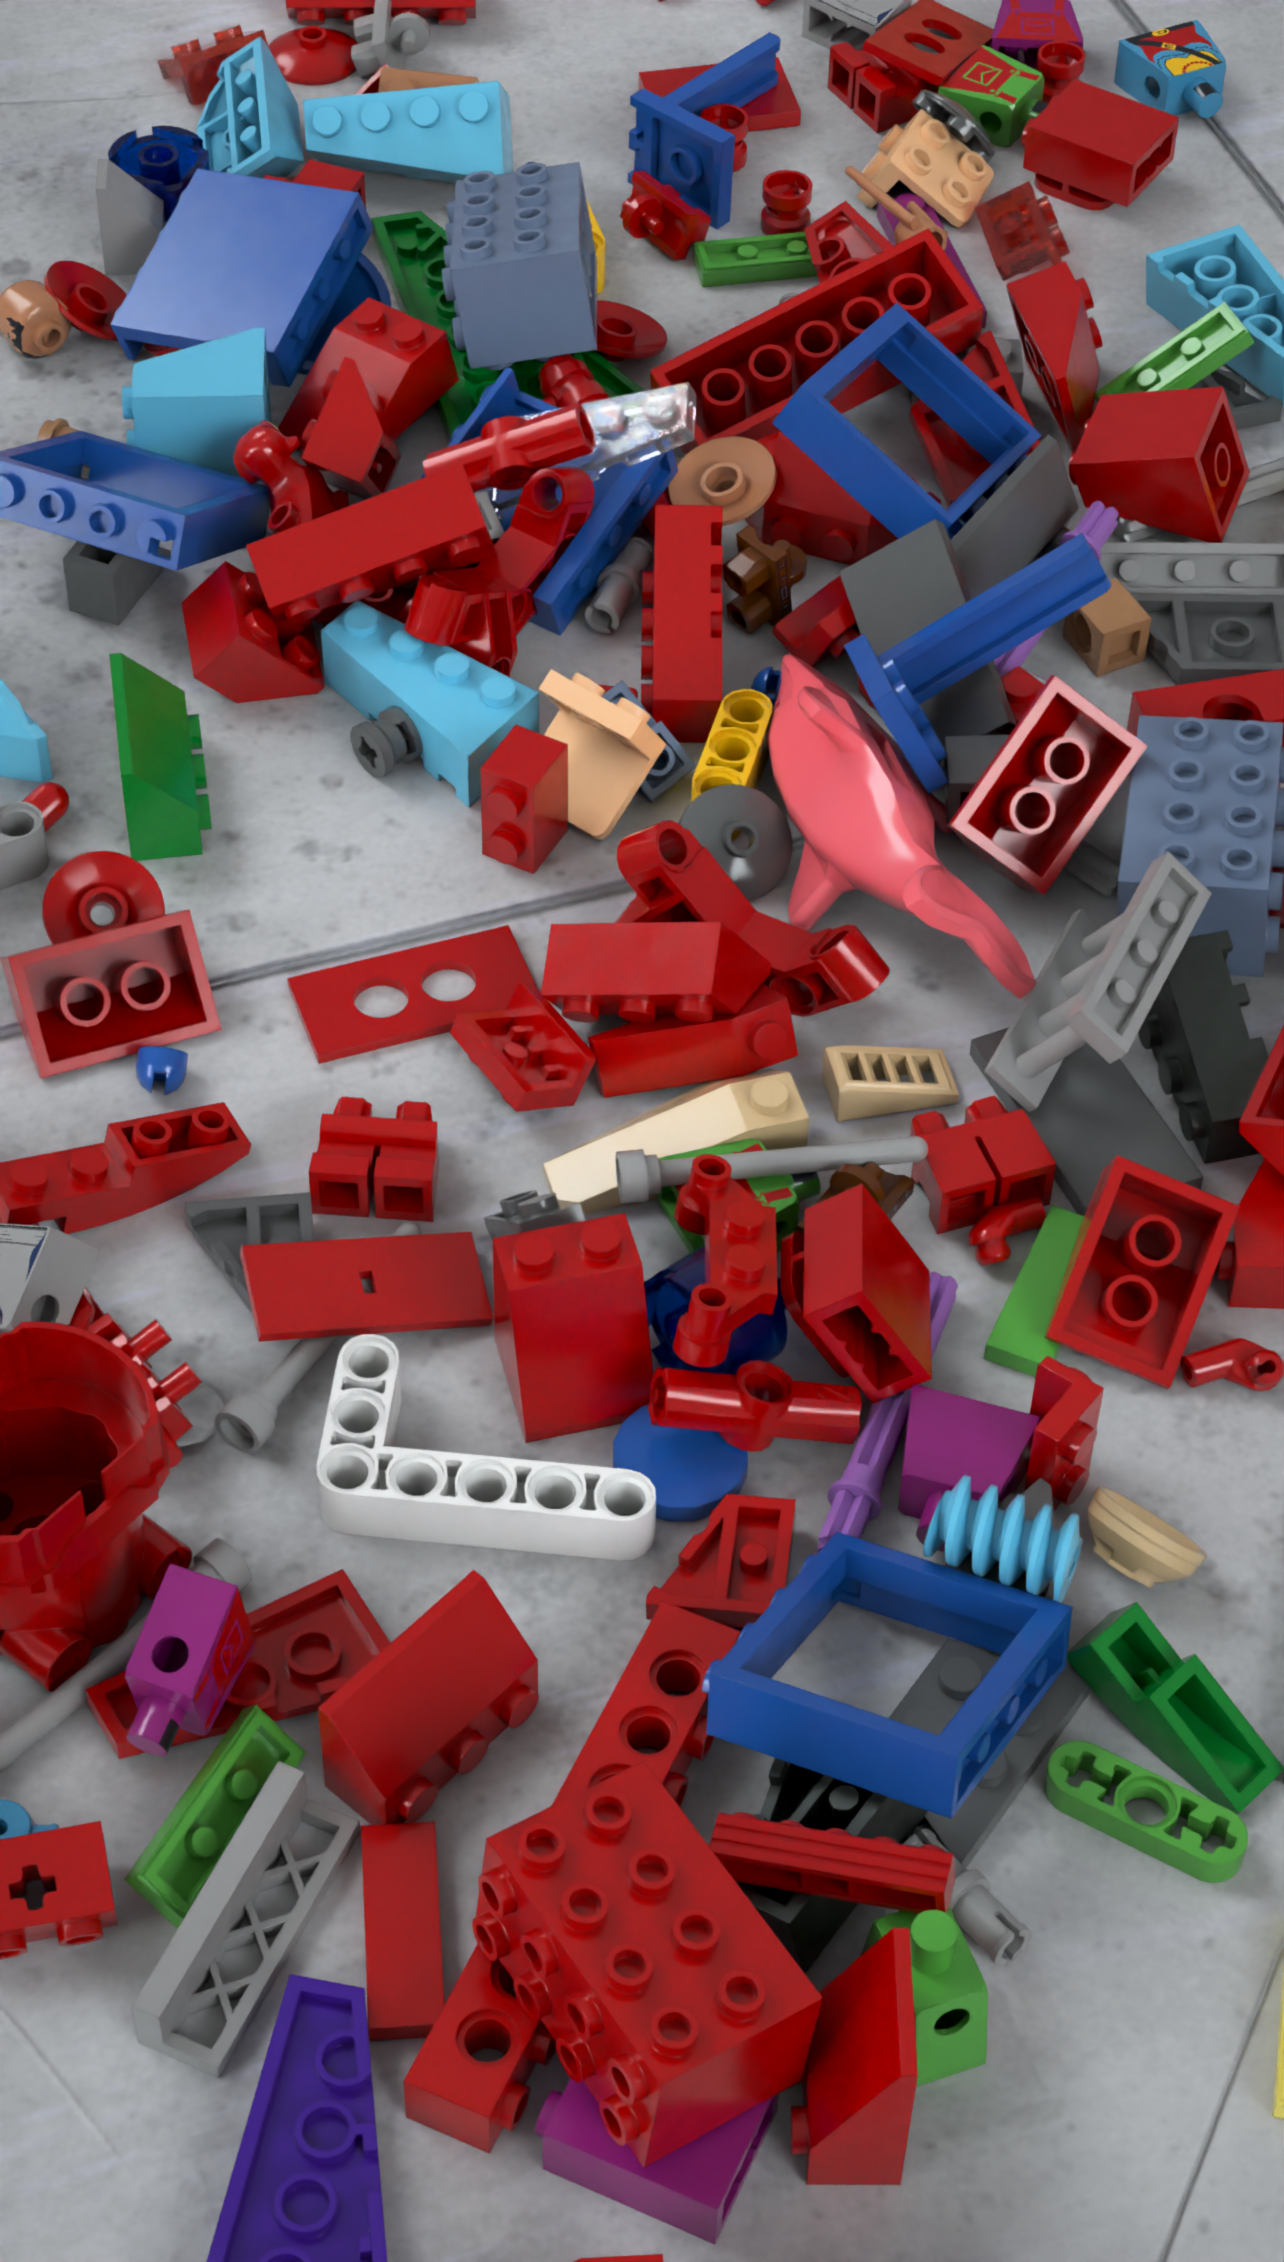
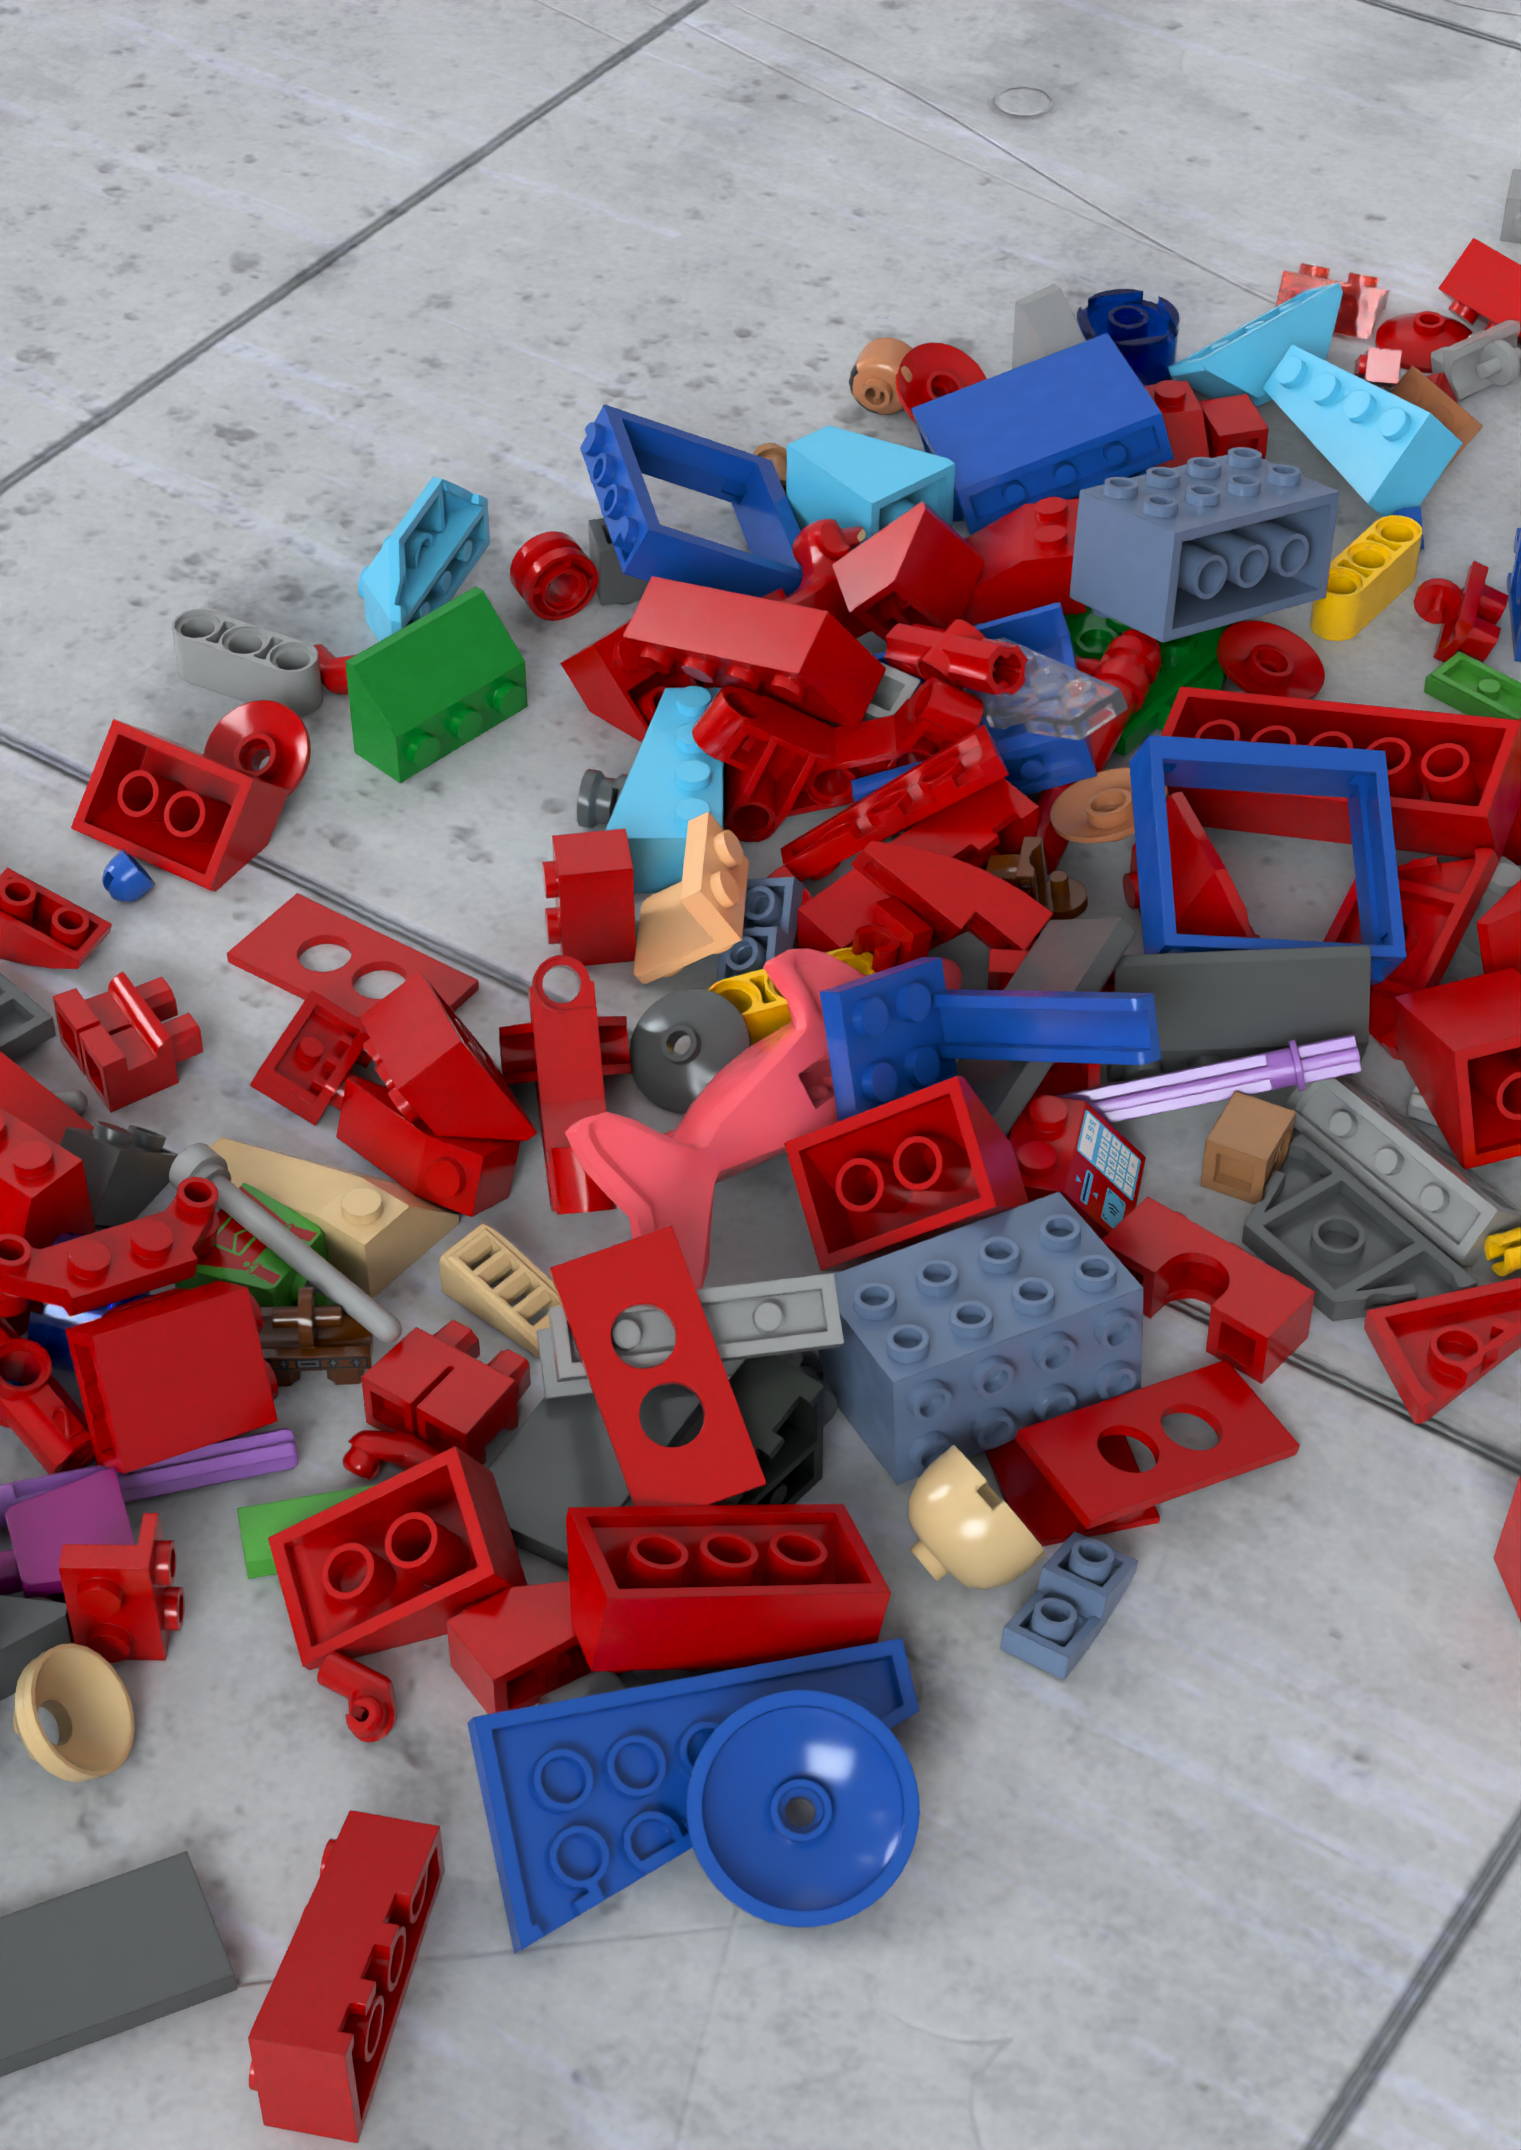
camera: 55 degrees right, 5 degrees down
(73, 624) = (553, 576): none -> red wheel
(384, 75) = (1379, 367): none -> piece
(619, 565) = (909, 798): none -> red wing
(751, 664) = (893, 936): none -> red tile
(762, 606) = (954, 895): none -> red slope
(1094, 976) = (655, 1275): none -> red piece

